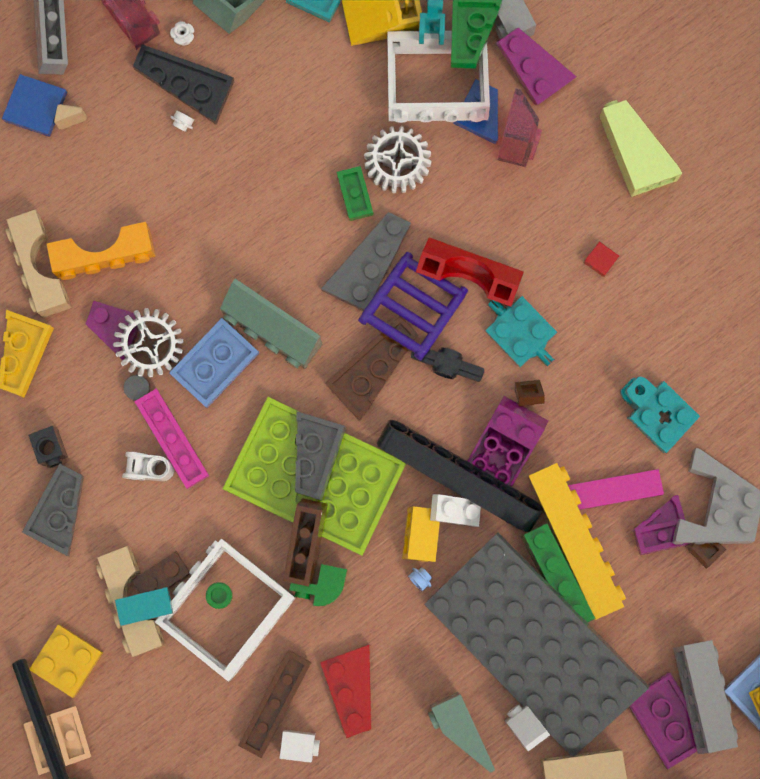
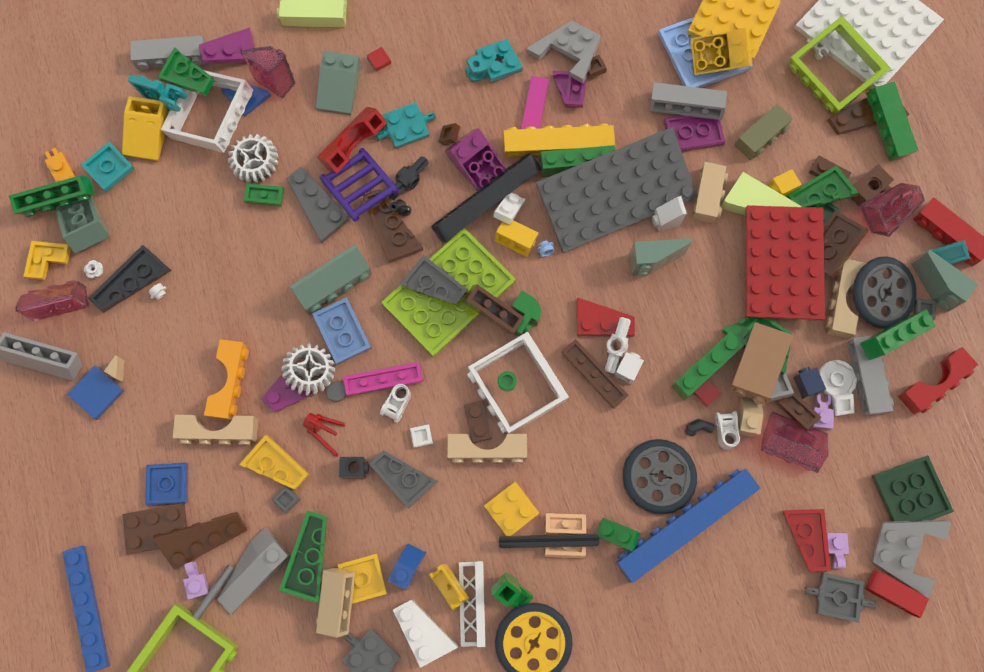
camera: 70 degrees left, 5 degrees down
(84, 378) = (315, 423): none -> red plant
(118, 514) = (421, 436): none -> white tile
(144, 606) = (495, 435): teal tile -> none
(333, 720) = (620, 334): none -> white axle
(404, 370) = (400, 206): none -> black arm
(543, 221) = (338, 82): none -> sand green slope

